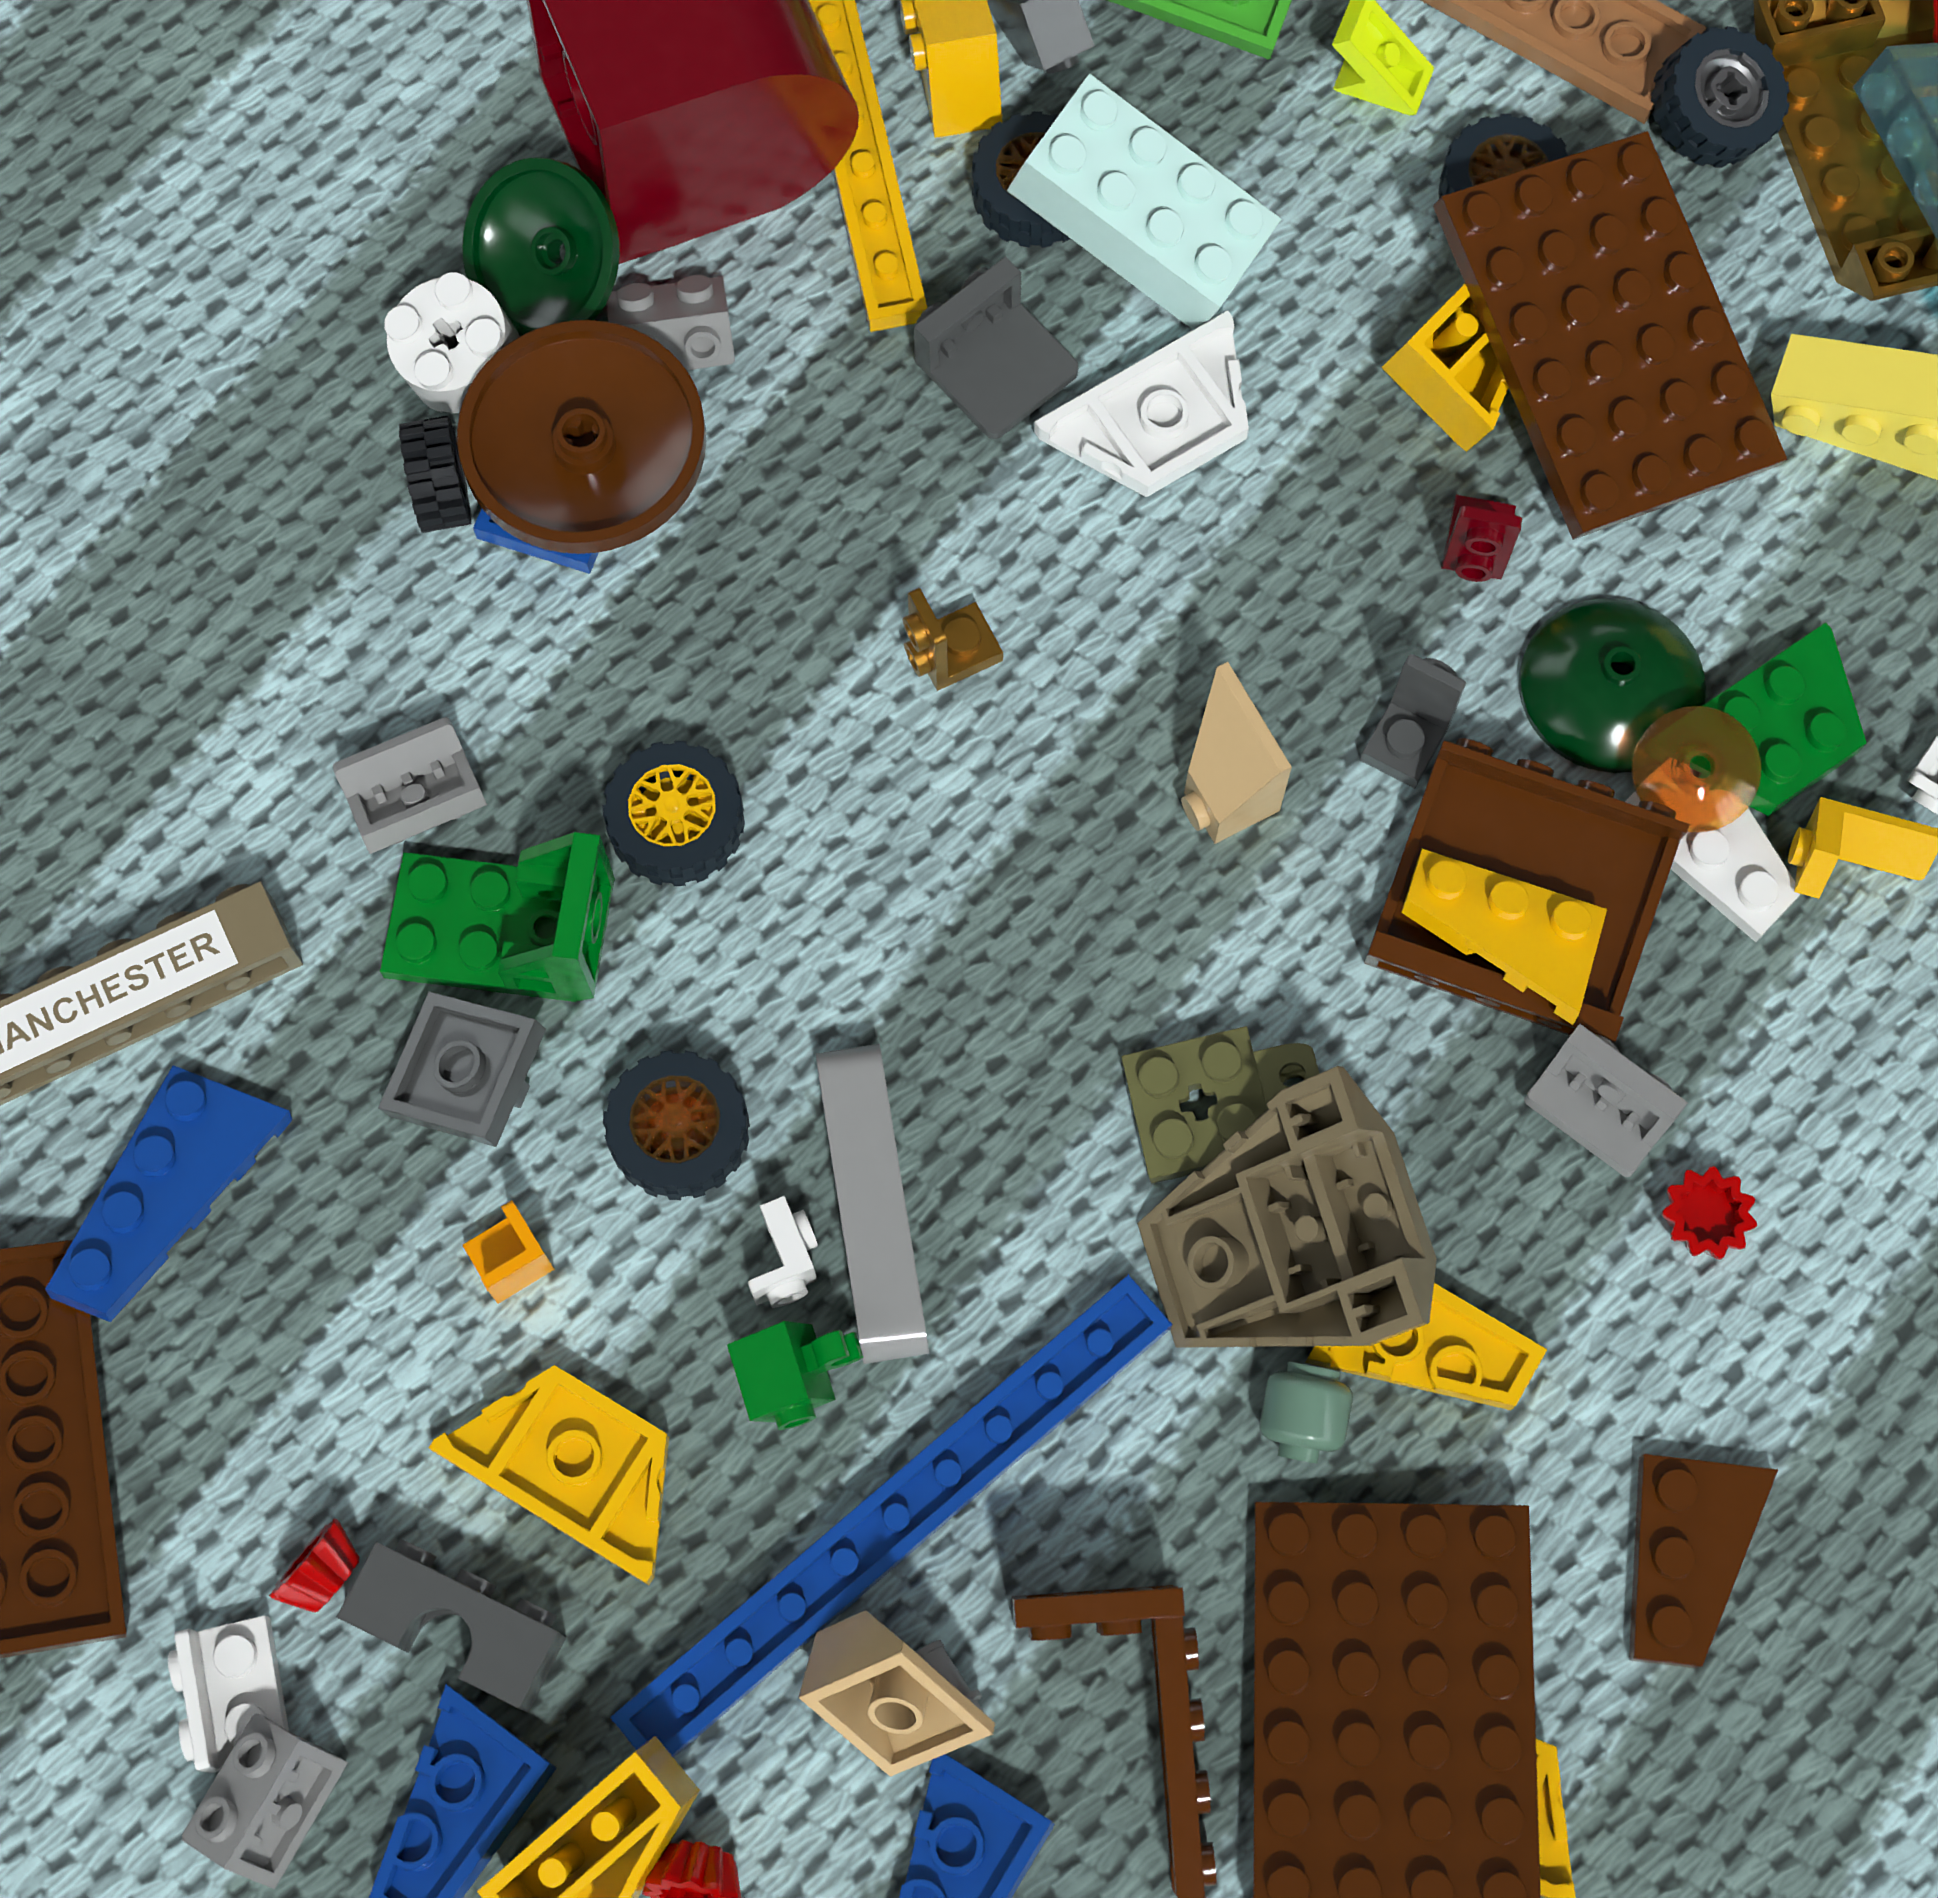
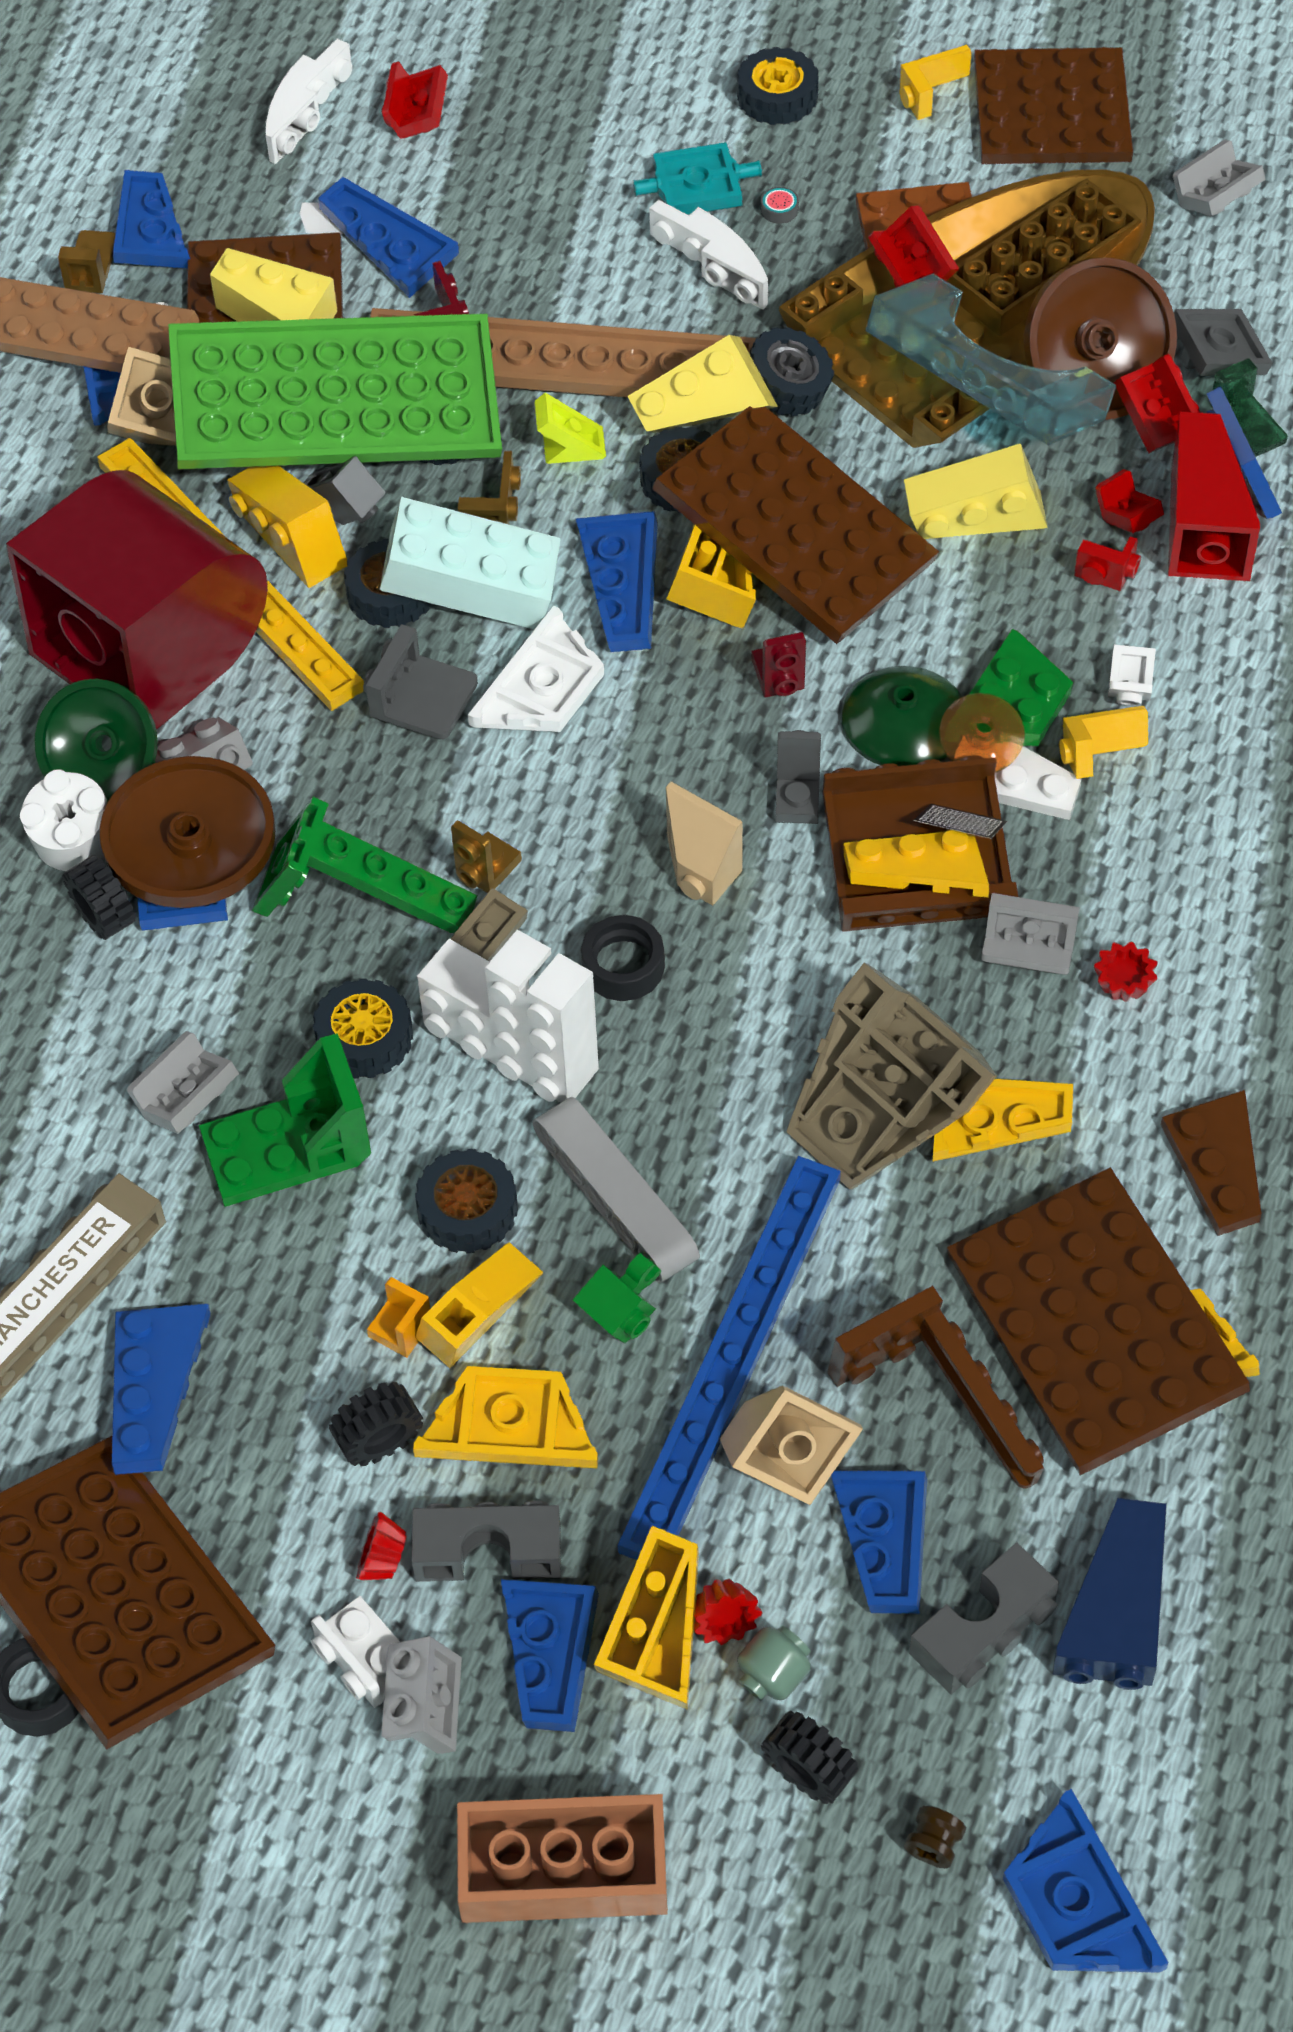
camera: 25 degrees left, 15 degrees down
(394, 1395) = (376, 1423): none -> black tyre
(463, 1069) = (310, 1226): dark grey hinge -> none
(617, 1279) = (476, 1304): none -> yellow slope
(780, 595) = (361, 865): none -> green bracket
(792, 1239) = (580, 1235): white bracket -> none
(831, 873) = (528, 1032): none -> white piece
(895, 750) = (490, 925): none -> dark tan plate
(1054, 823) = (628, 985): none -> black tyre
(1221, 1067) = (785, 1020): olive plate -> none
(1222, 140) = (497, 509): none -> pearl gold bracket
(1306, 1411) = (948, 1181): sand green head -> none
(1349, 292) = (622, 572): none -> blue wing
(1588, 80) = (703, 389): none -> light yellow wedge
(1596, 891) = (960, 820): none -> black sticker

